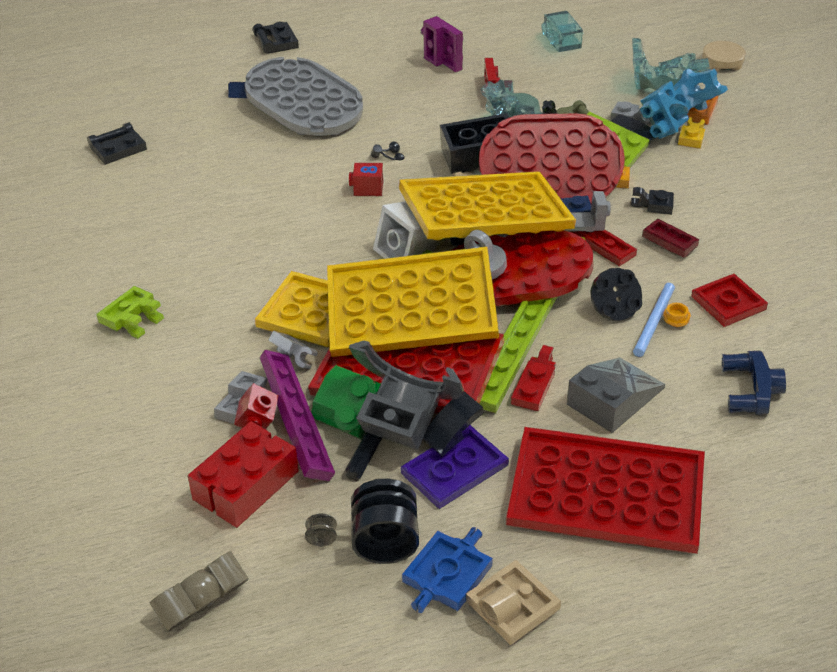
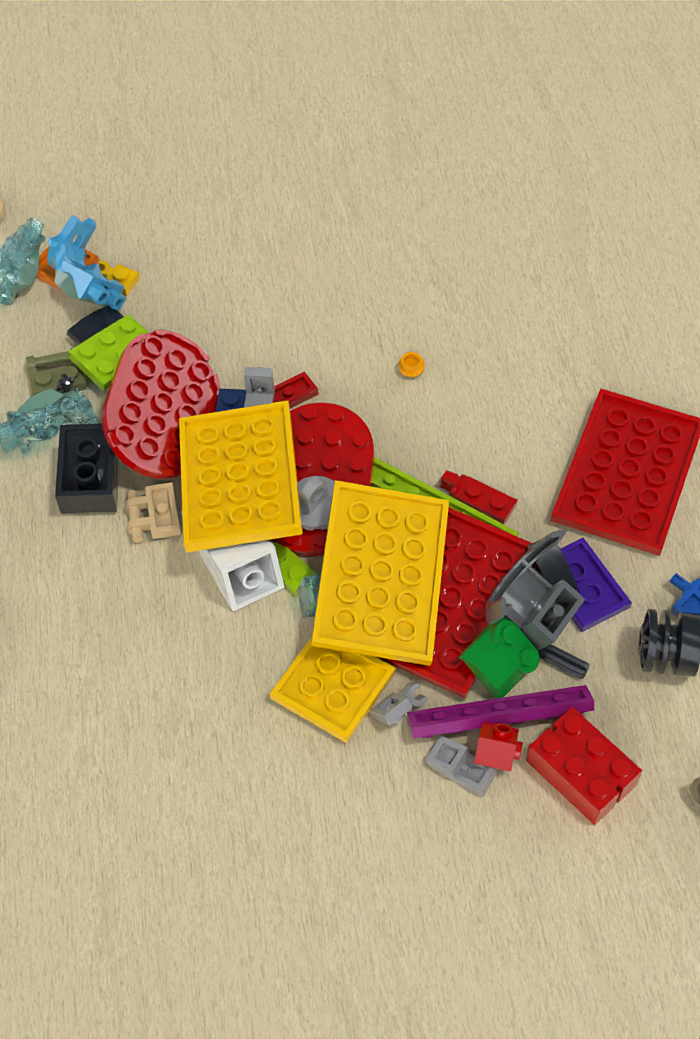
camera: 80 degrees left, 15 degrees up
(126, 311) = (290, 882): lime plate -> none
(320, 529) = (660, 704): clear smoke wheel -> none
(367, 179) = (111, 595): red brick -> none
(394, 147) = (44, 562): black piece -> none
(611, 392) = (509, 437): dark grey slope -> none
(627, 290) = (383, 402): black plate -> none
(629, 110) = (57, 322): light grey plate -> none
(653, 320) = (410, 384): light blue bar -> none
(656, 201) = (227, 336): black plate -> none
(670, 238) = (295, 340): dark red plate -> none
(729, 300) = (394, 320): red tile -> none
(764, 380) = (519, 325): dark blue connector -> none

